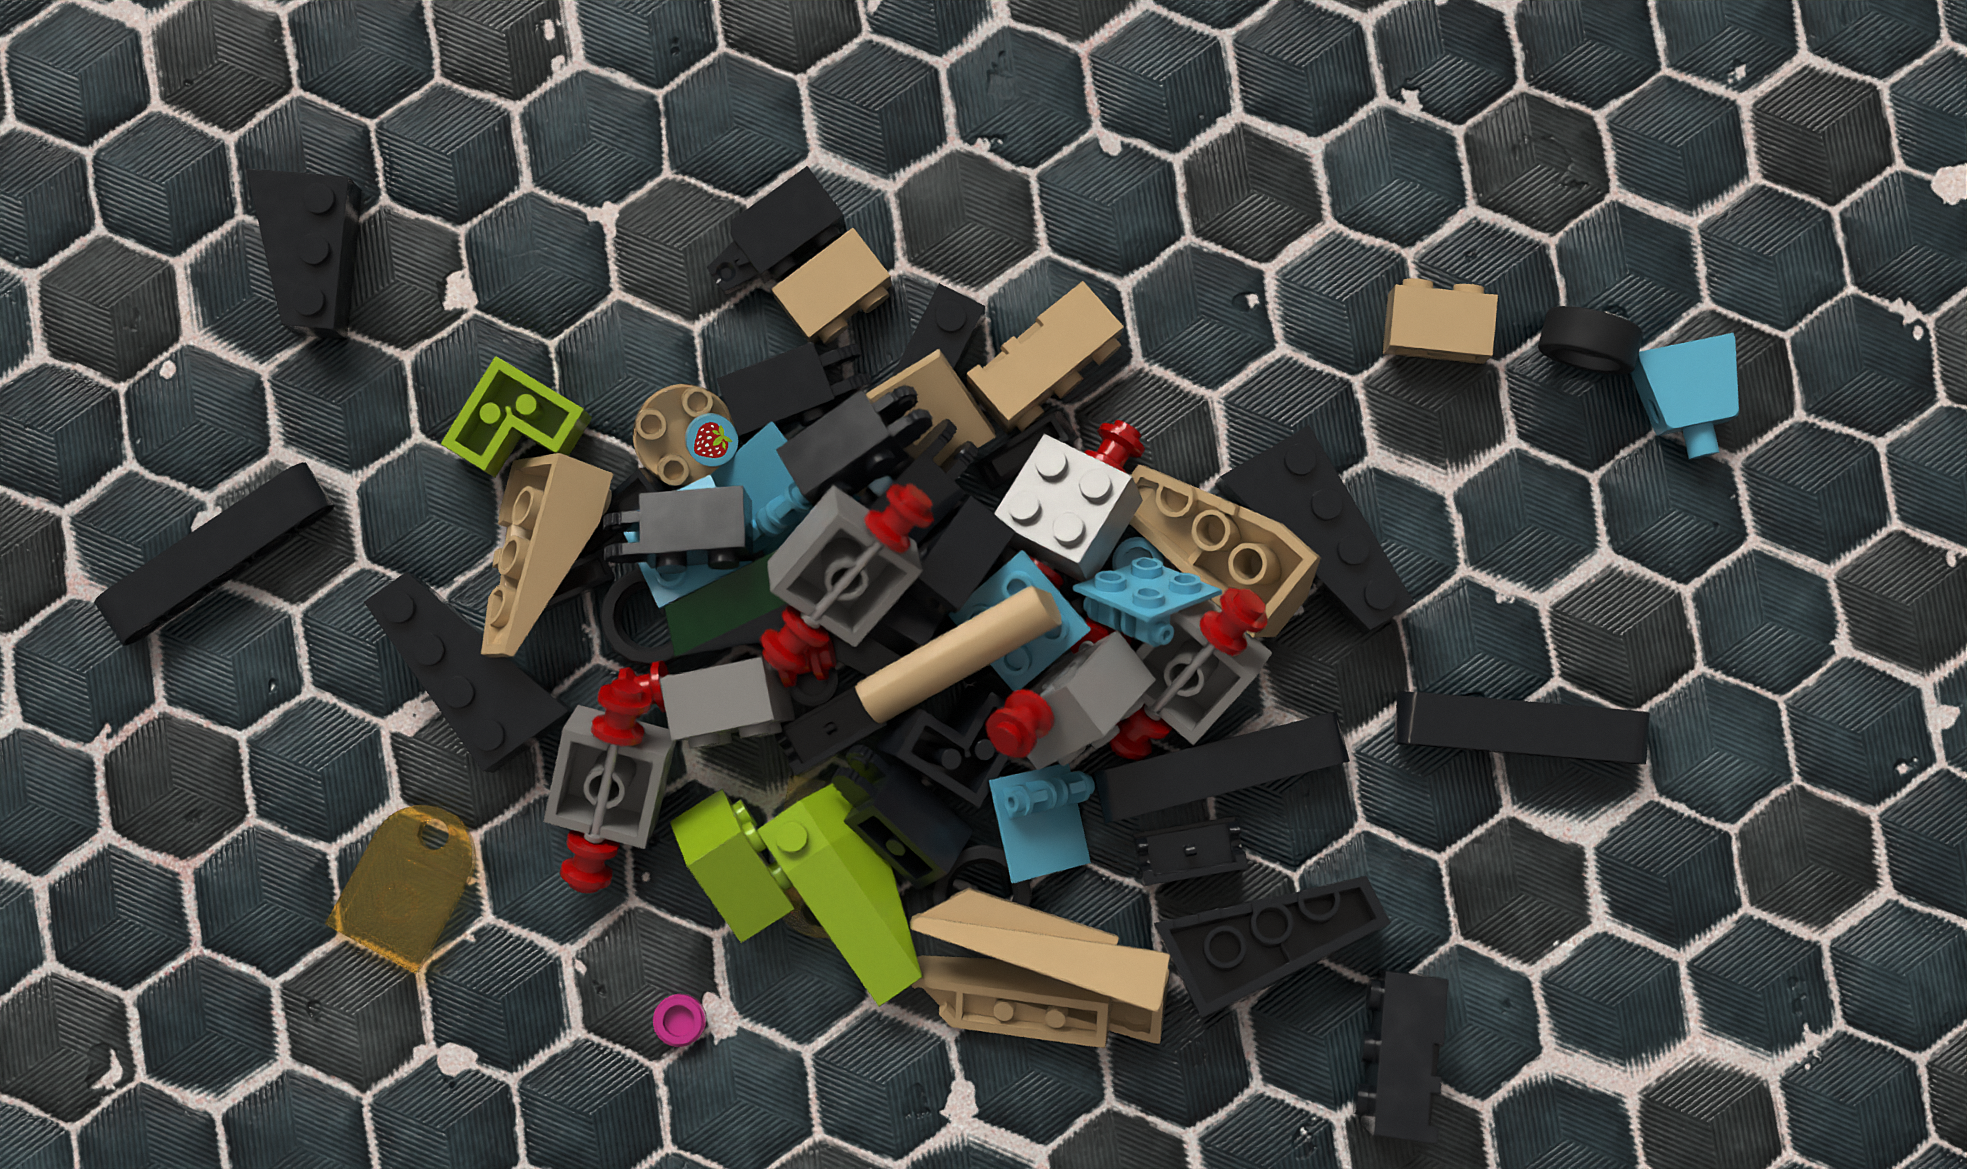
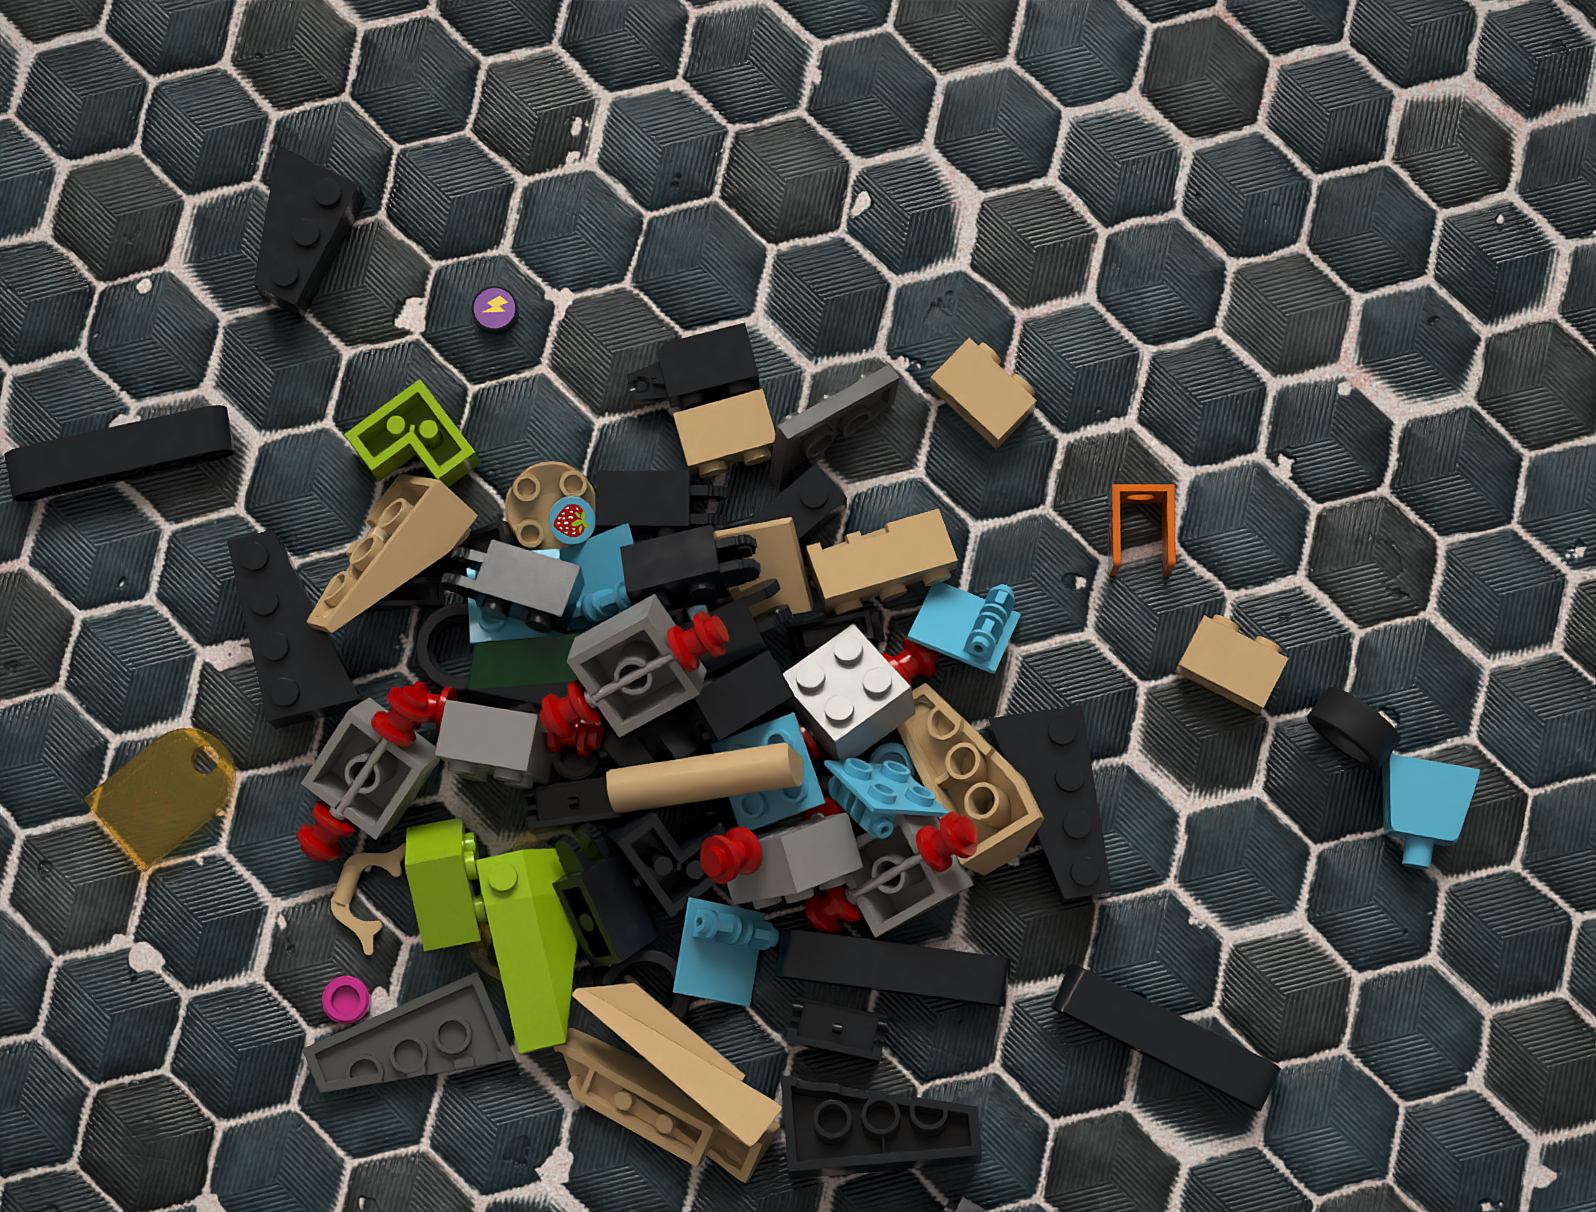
camera: 25 degrees right, 5 degrees down
(542, 253) = (495, 310): none -> medium lavender tile
(632, 904) = (347, 884): none -> tan helmet
(775, 1025) = (423, 1037): none -> dark grey wing
(945, 220) = (812, 431): none -> dark grey wing
(1079, 142) = (984, 392): none -> tan brick
(1157, 389) = (966, 624): none -> medium azure hinge
(1319, 202) = (1142, 494): none -> orange piece

